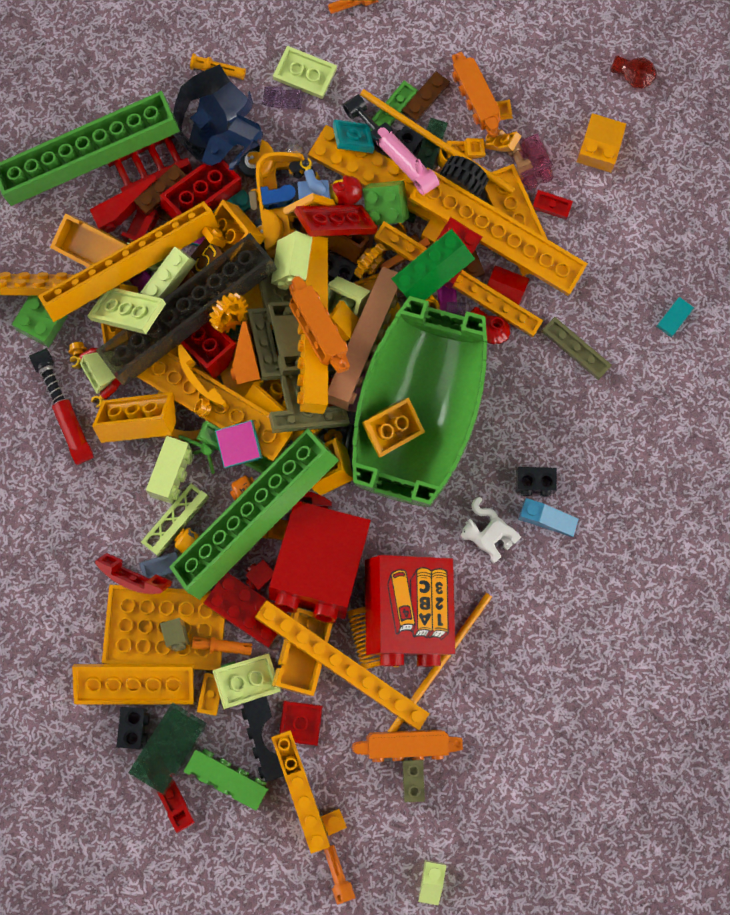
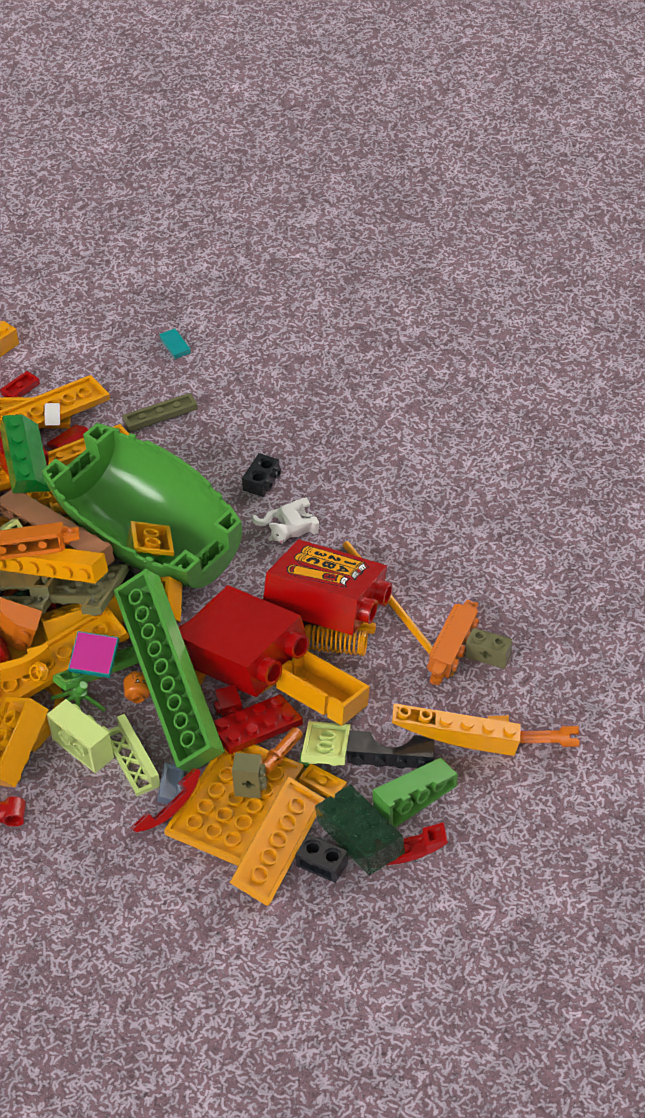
camera: 60 degrees left, 30 degrees down
(185, 539) = (159, 750): light orange head -> none
(302, 720) = (381, 725): red tile -> none
(342, 665) = (349, 657): light orange plate -> none
(432, 882) = (589, 665): yellowish green slope -> none
(515, 257) = (52, 414): none -> white sticker
(547, 517) = (296, 480): dark azure slope -> none

